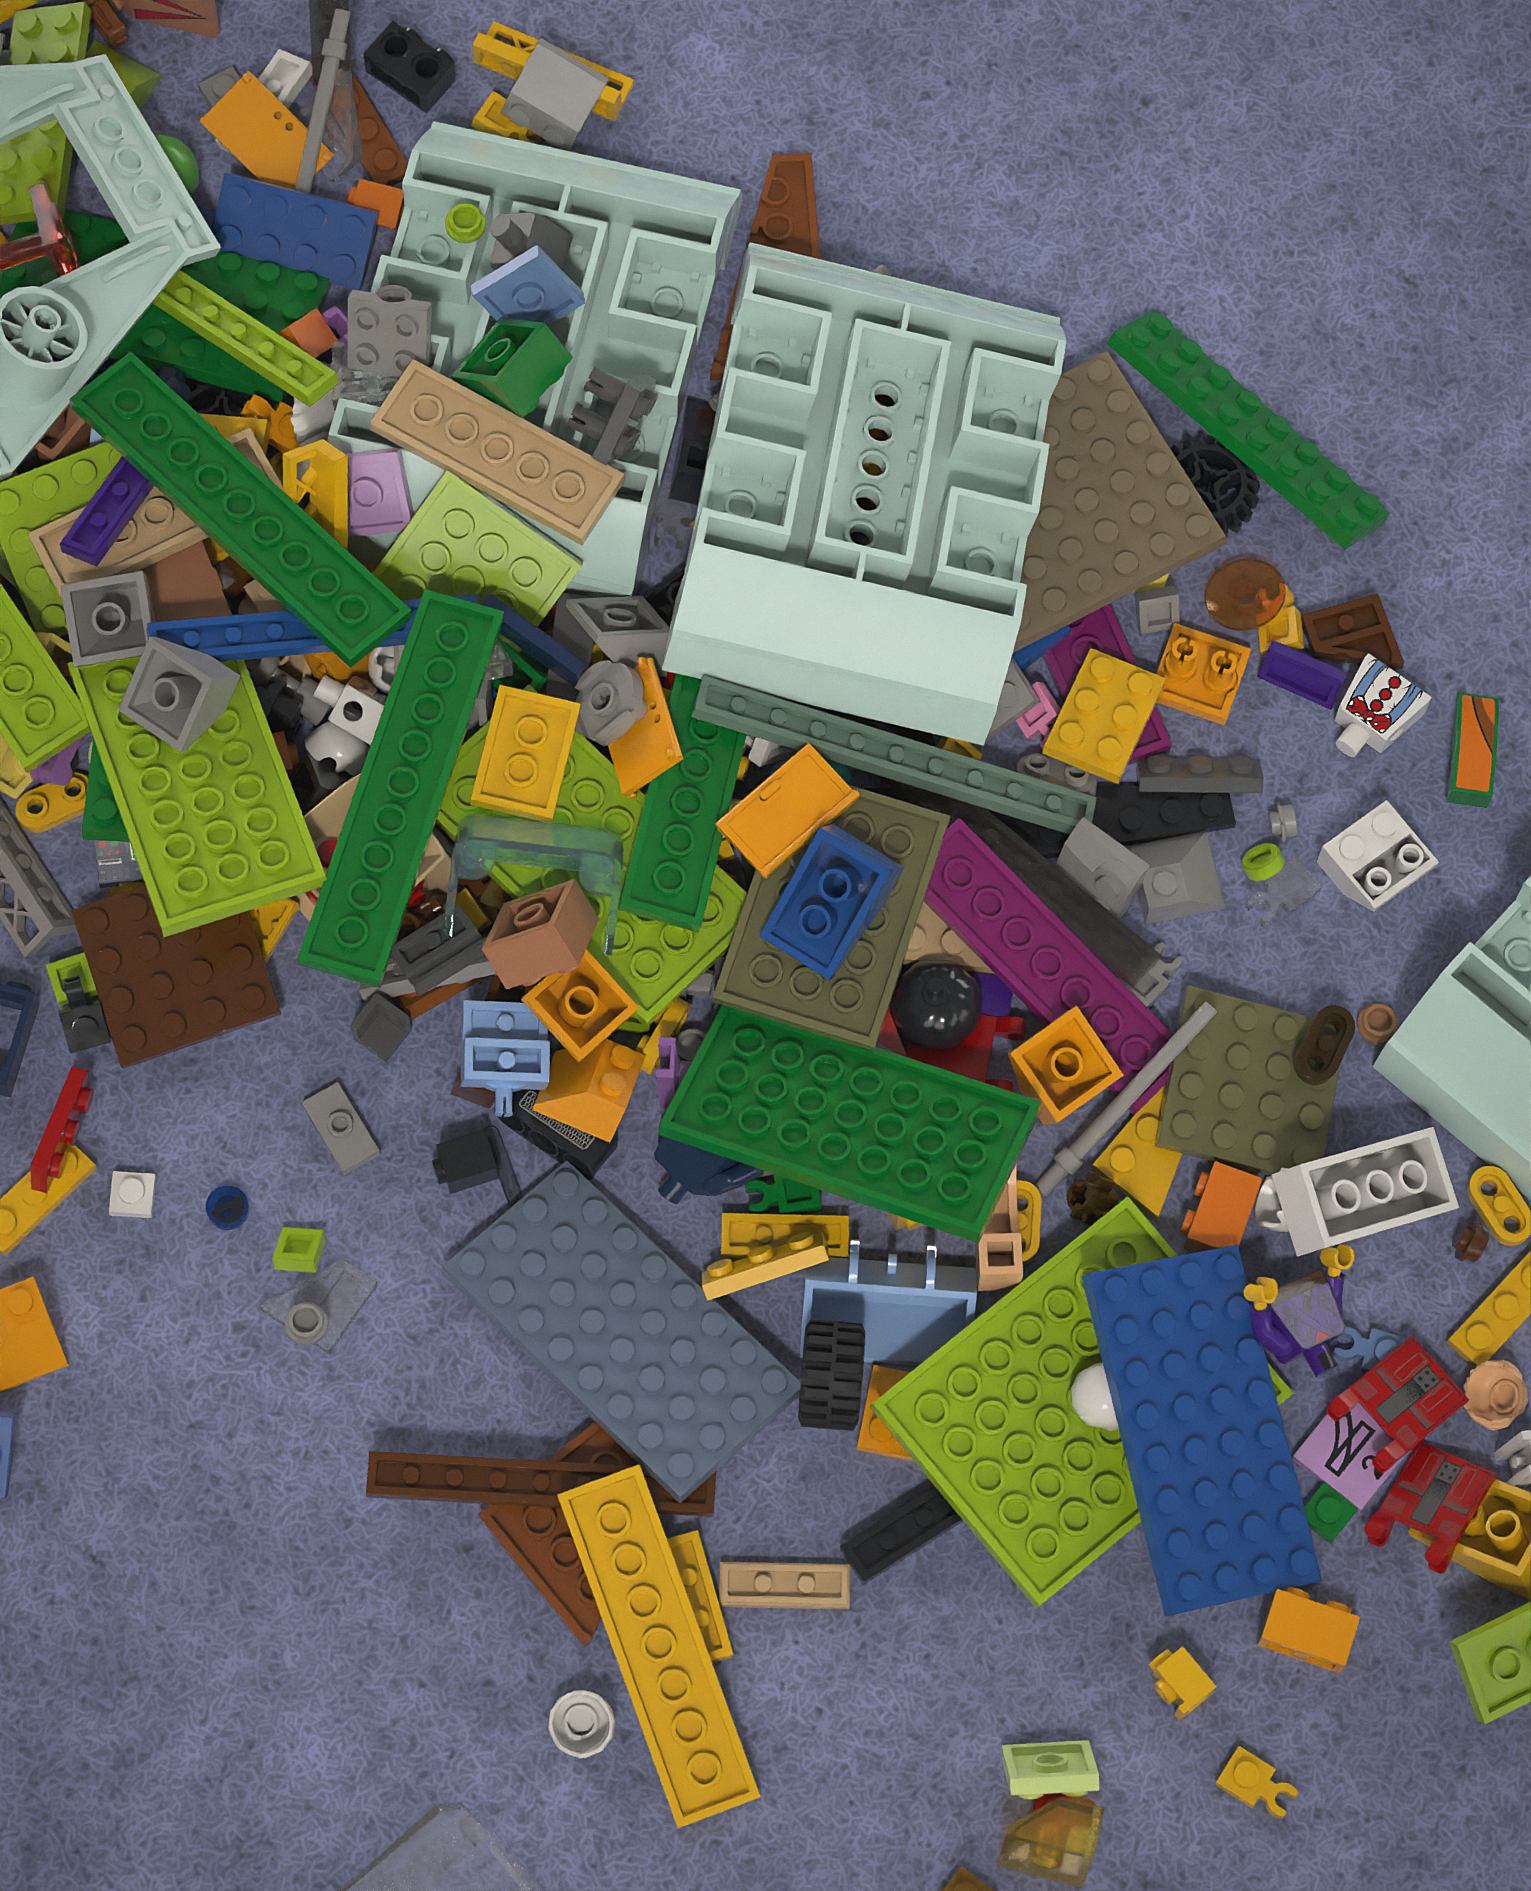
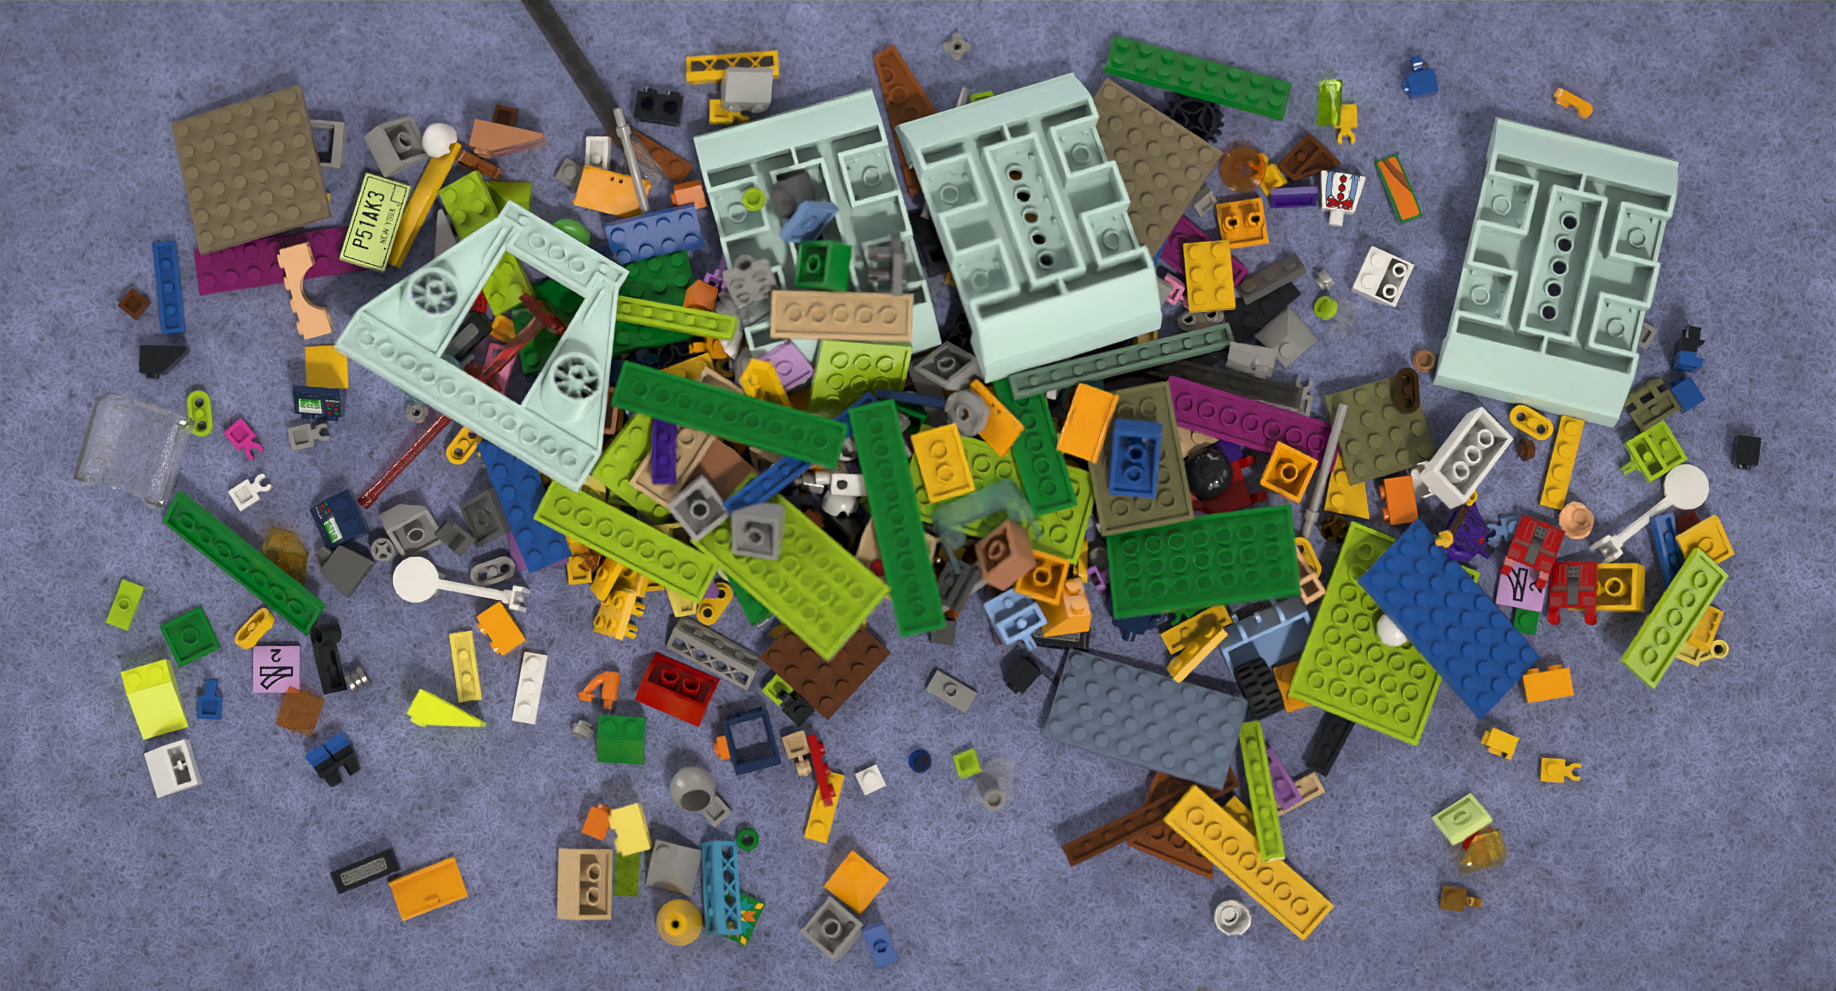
camera: 20 degrees left, 15 degrees up
(44, 1081) = (797, 746): none -> tan plate
(743, 1541) = (1261, 791): none -> lime plate
(781, 1540) = (1284, 788): none -> medium lavender plate
(904, 218) = (950, 47): none -> light grey plate
(1434, 569) = (1329, 103): none -> clear neon green tile
(1444, 608) = (1347, 121): none -> yellow plate

